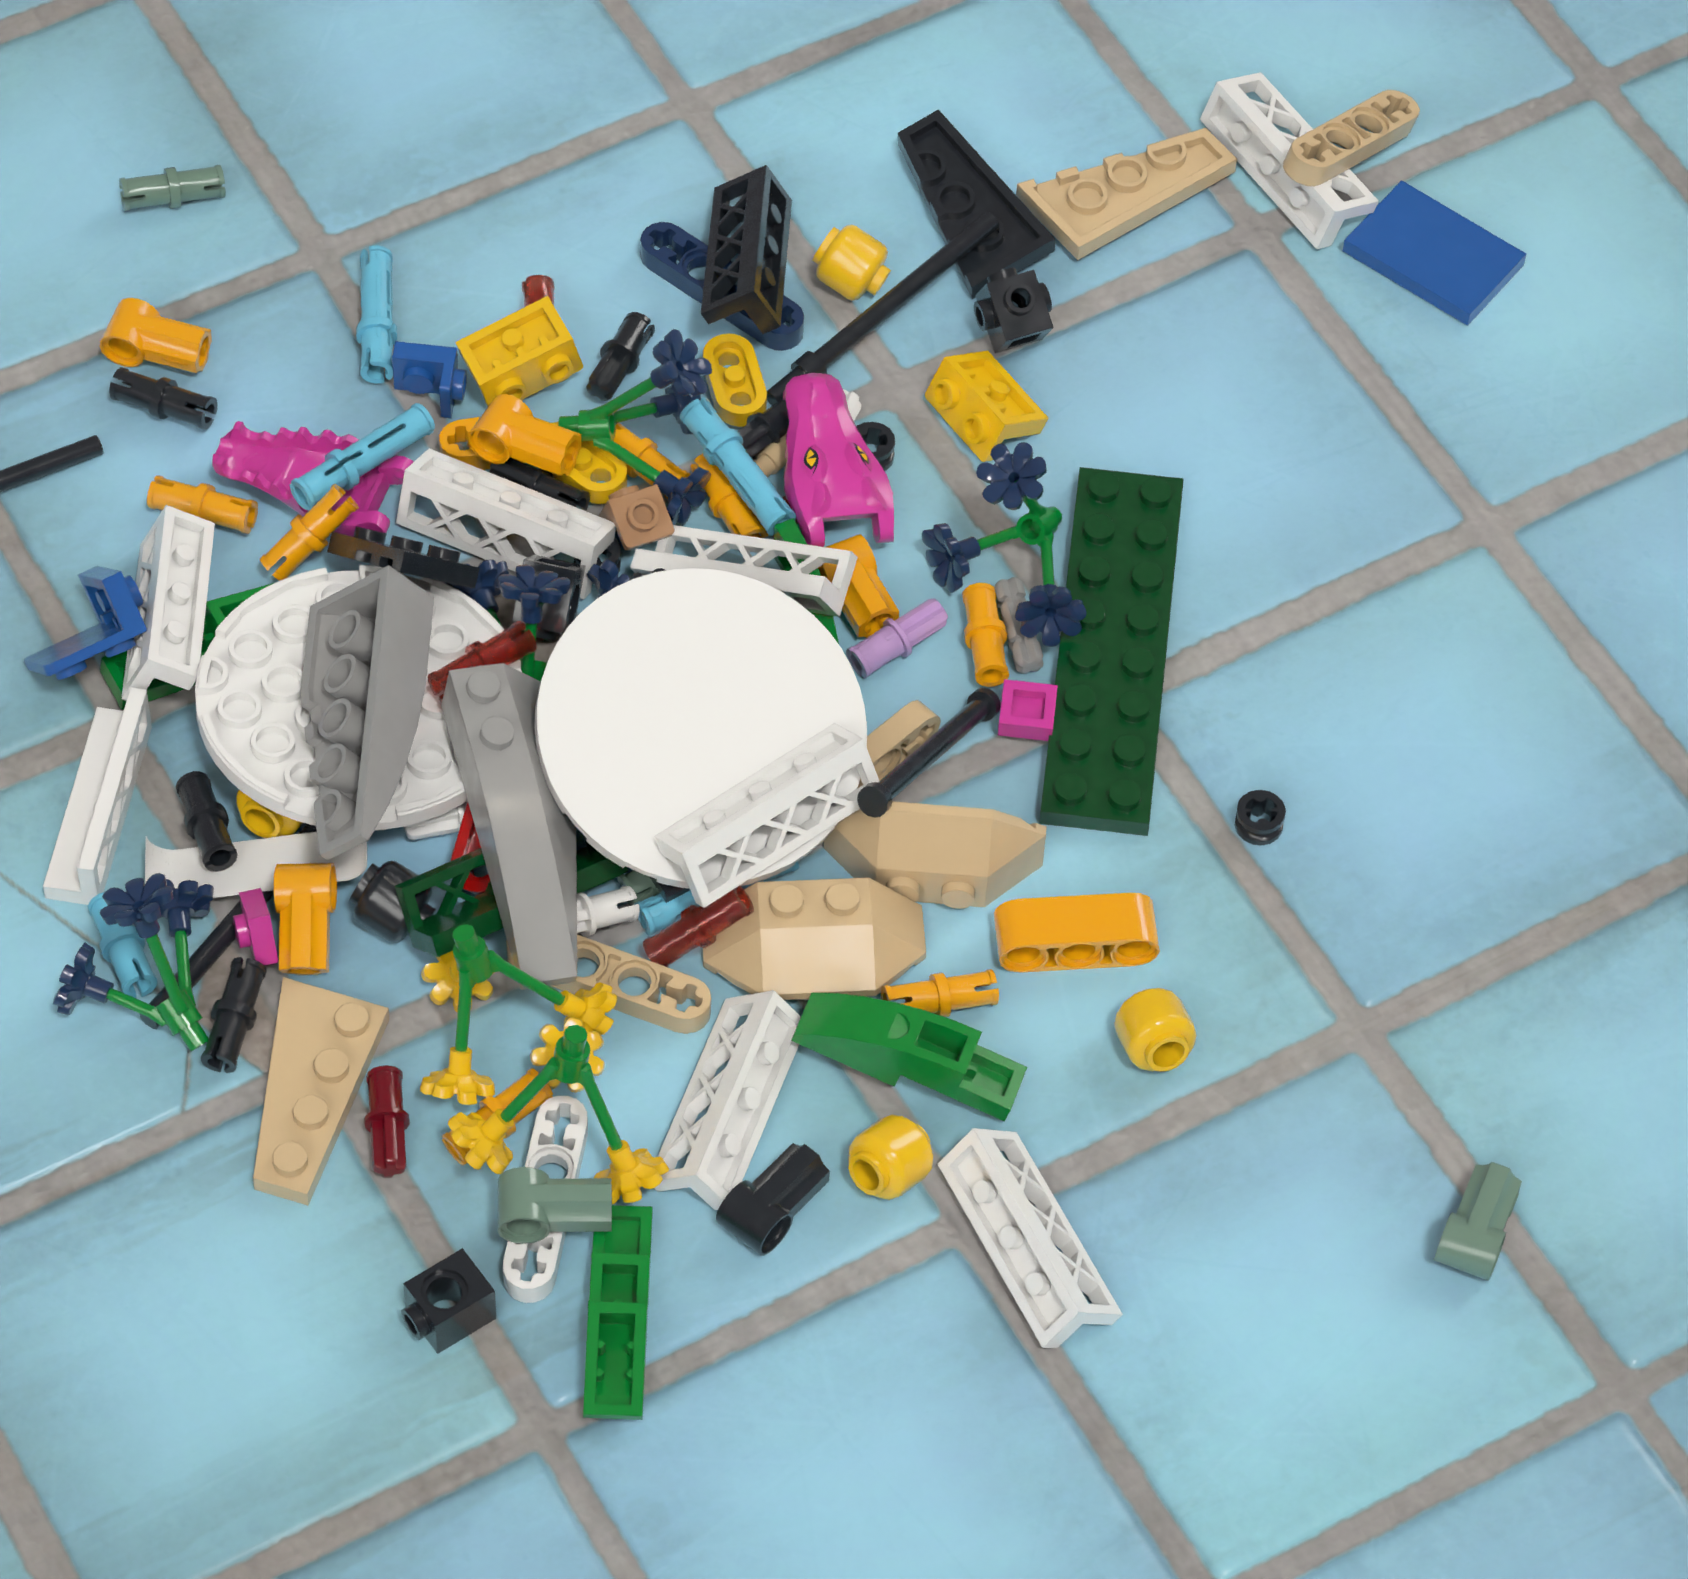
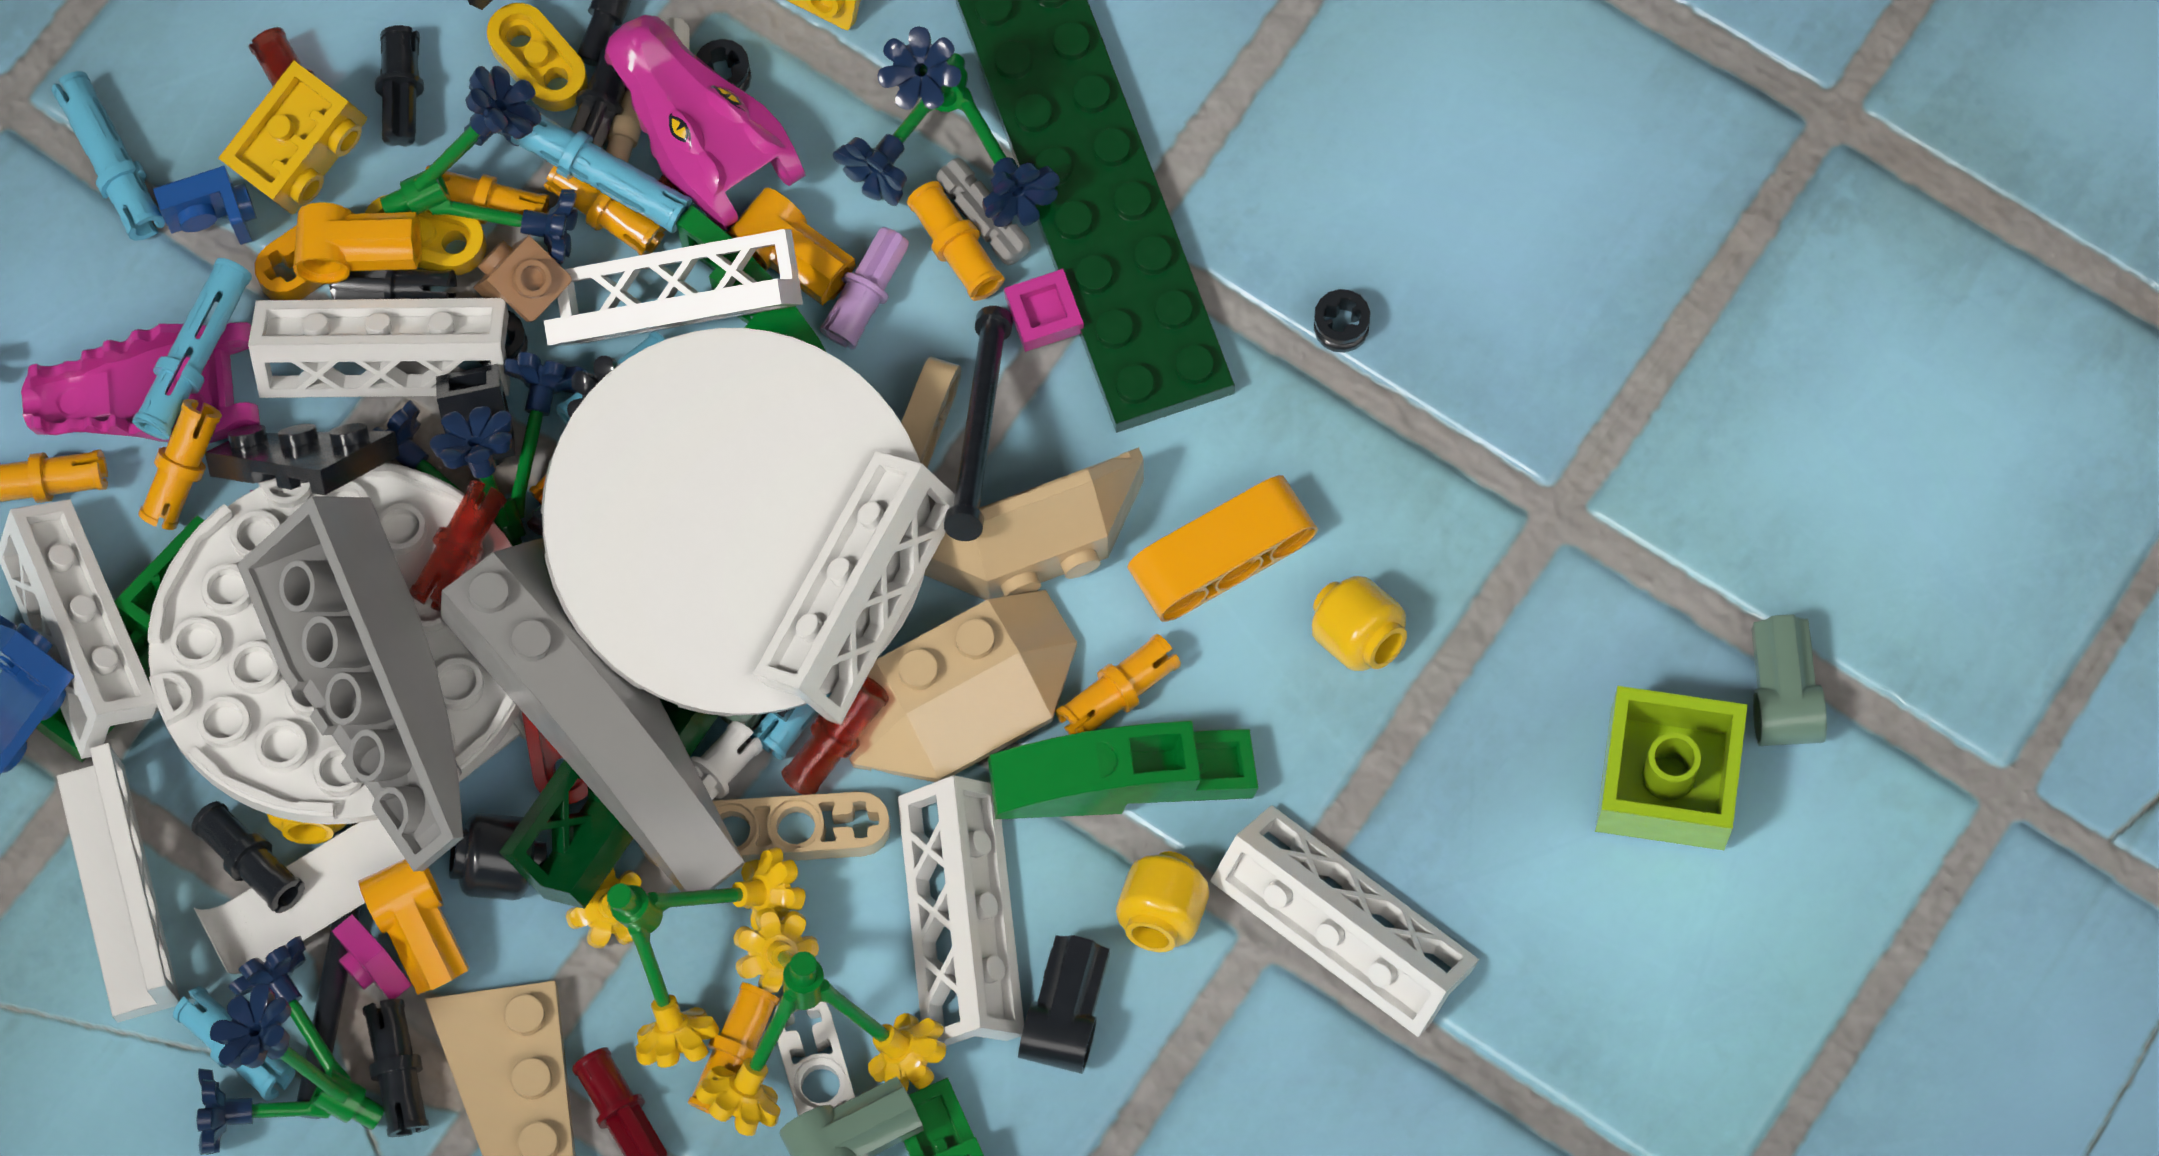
camera: 20 degrees left, 15 degrees up
(1350, 1236) = (1671, 768): none -> lime brick

